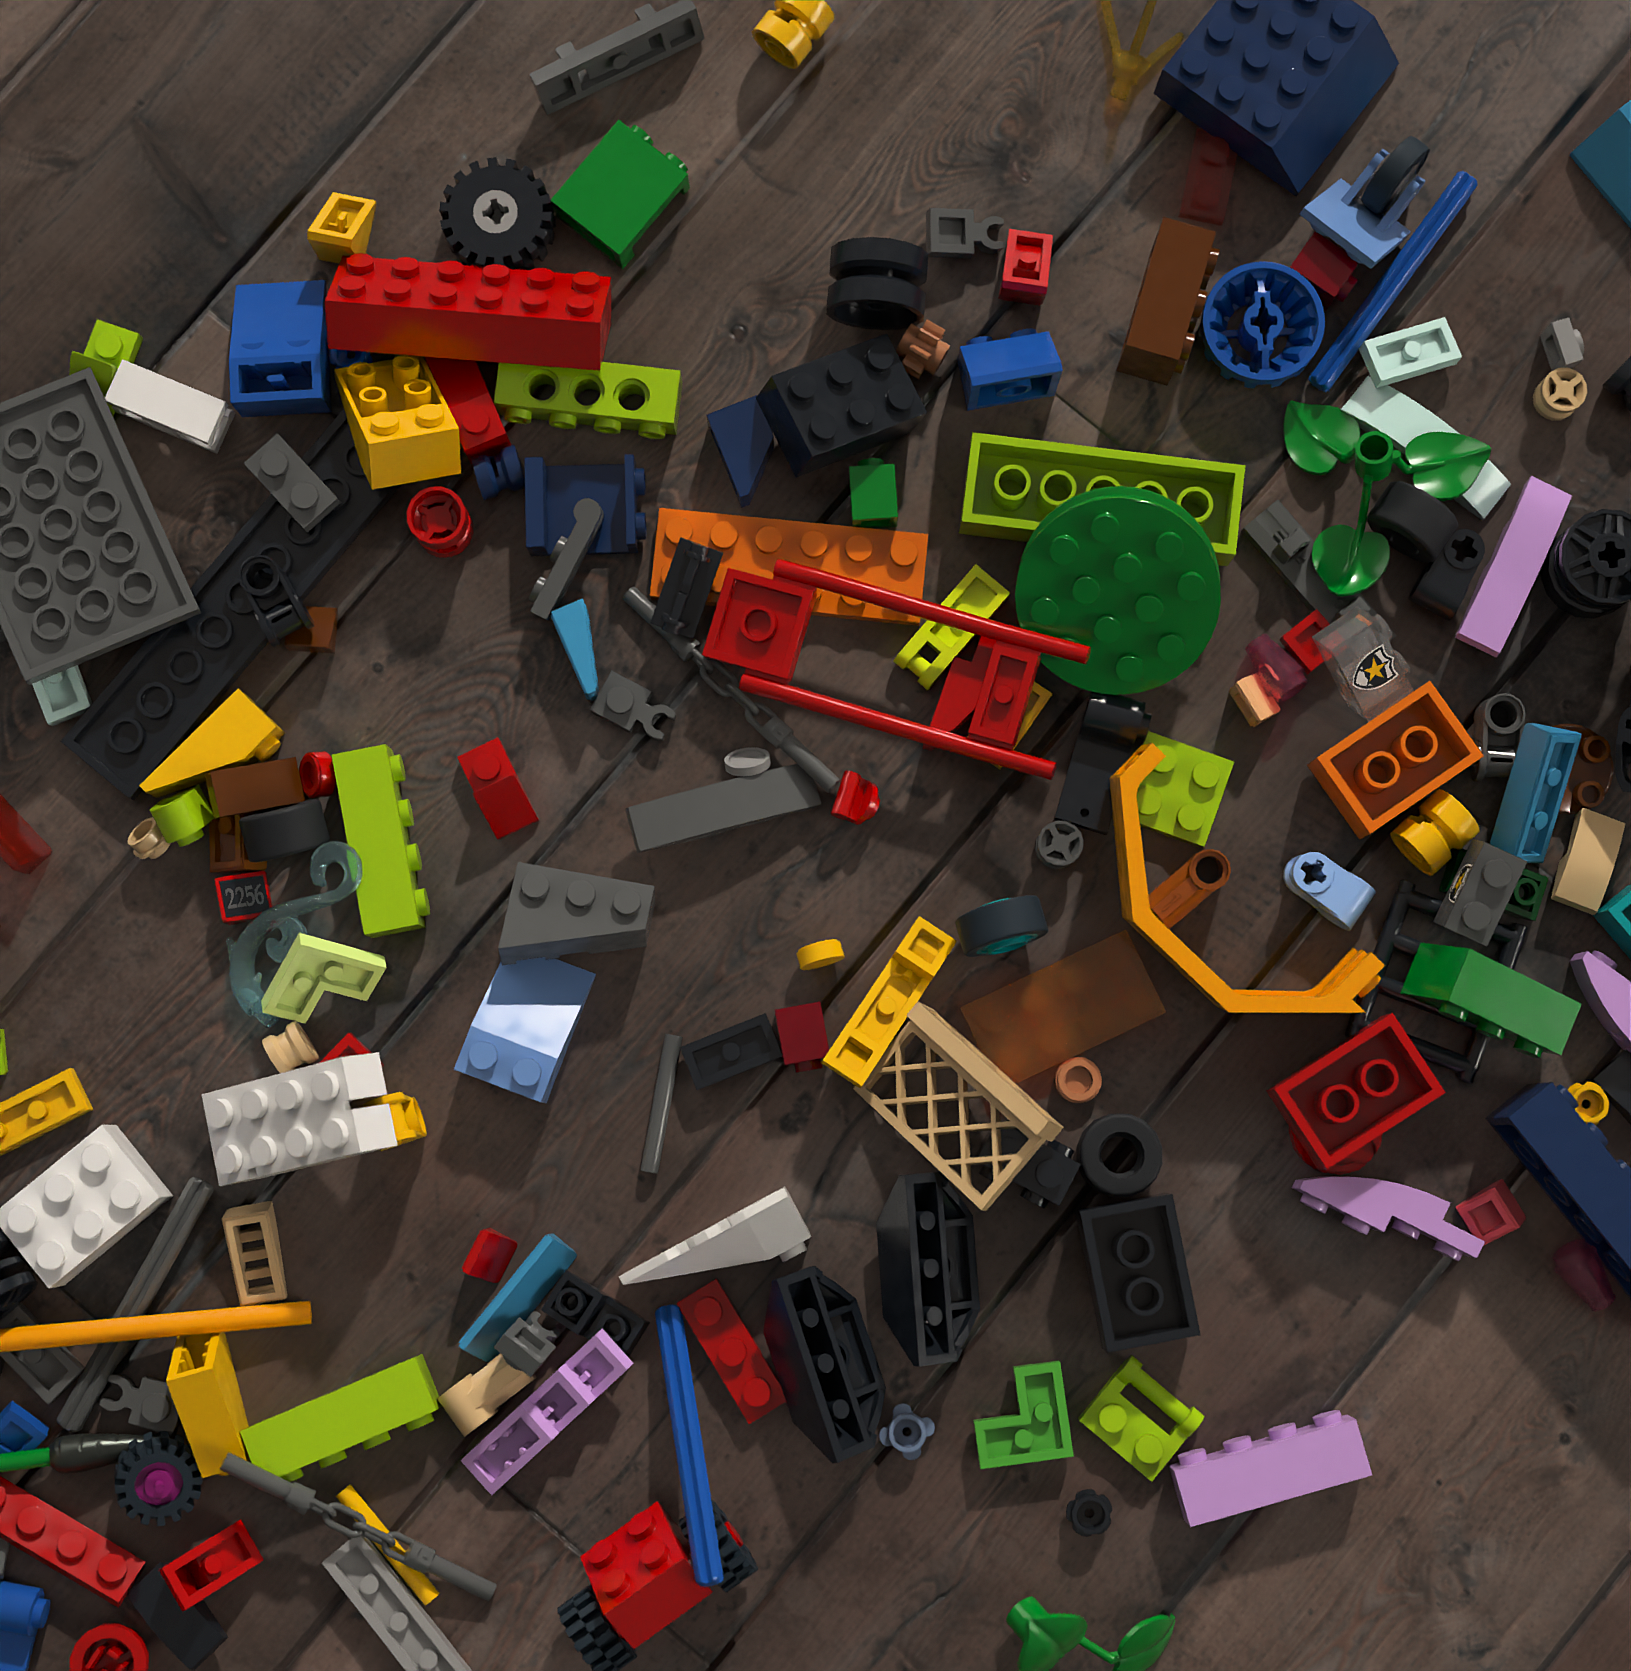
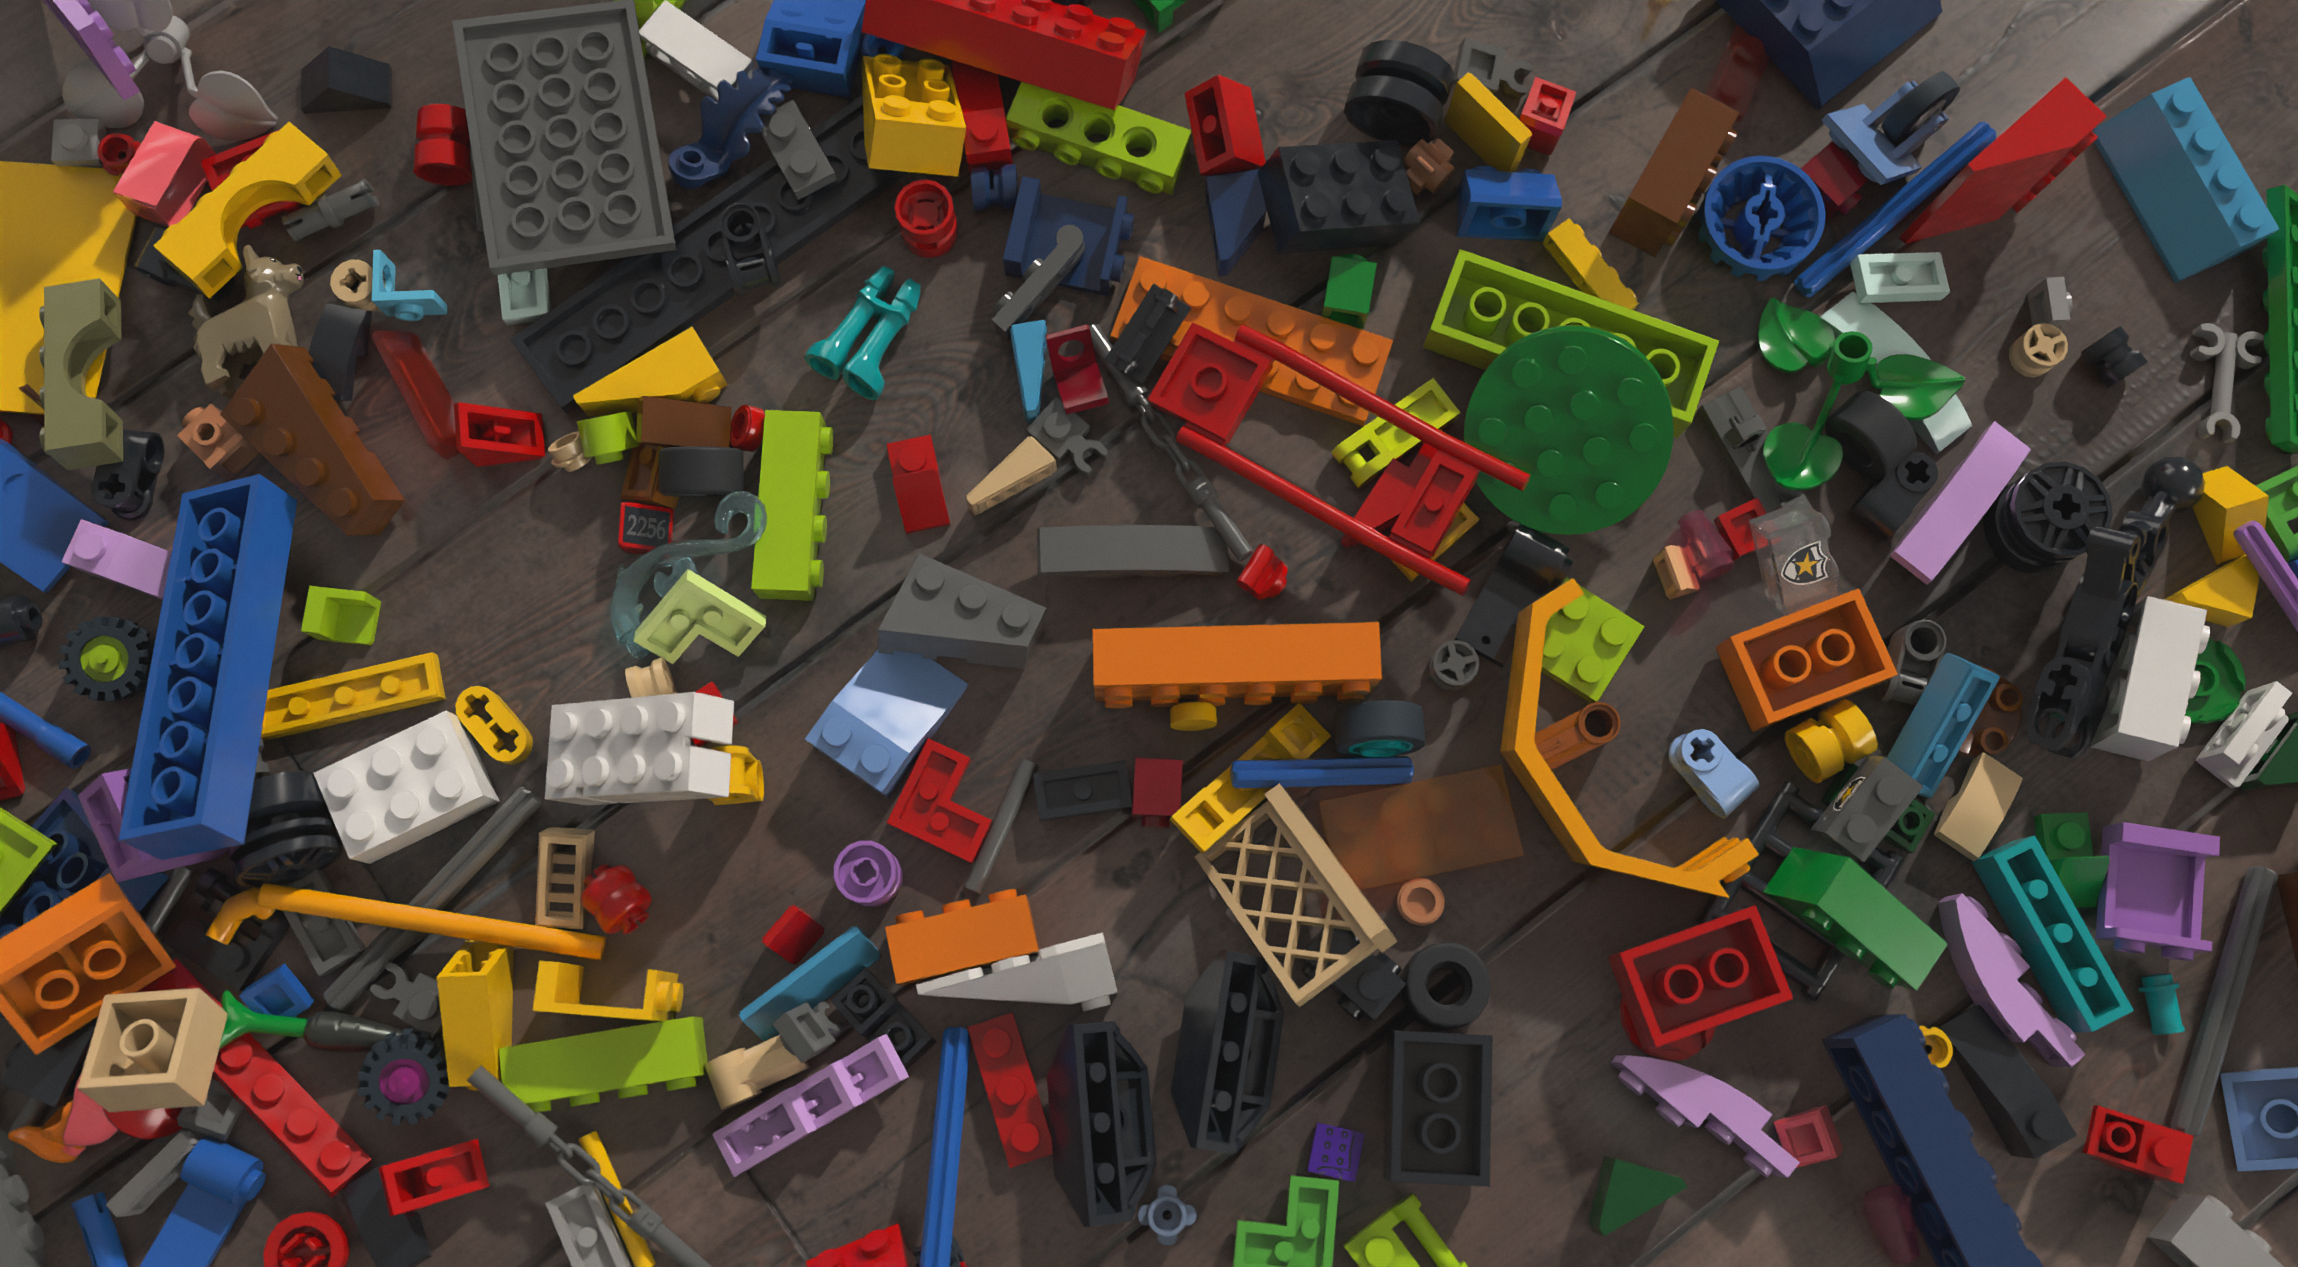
camera: 10 degrees right, 5 degrees down
(75, 839) = (498, 434): none -> red slope
(154, 1115) = (486, 733): none -> yellow beam
(218, 474) = (727, 126): none -> dark blue plant
(283, 1364) = (560, 992): none -> yellow panel
(311, 1263) = (616, 899): none -> red piece
(318, 638) = (780, 301): reddish brown slope -> none
(416, 689) = (862, 371): none -> teal piece
(546, 1182) = (868, 874): none -> medium lavender wheel
(587, 1106) = (927, 805): none -> red plate
(593, 753) = (1018, 471): none -> tan slope
(626, 643) = (1076, 376): none -> dark red bracket
(650, 1220) = (961, 937): none -> orange brick
(713, 360) = (1224, 127): none -> red brick
(747, 761) = (1166, 513): light grey piece -> none
(848, 895) = (1236, 663): none -> orange brick
(955, 979) = (1321, 772): none -> blue axle
(972, 297) = (1487, 125): none -> yellow tile
(1051, 1334) = (1335, 1152): none -> dark purple tile
(1103, 416) = (1585, 265): none -> yellow piece
(1332, 1306) = (1628, 1192): none -> dark green slope
(1497, 223) = (2014, 164): none -> red slope

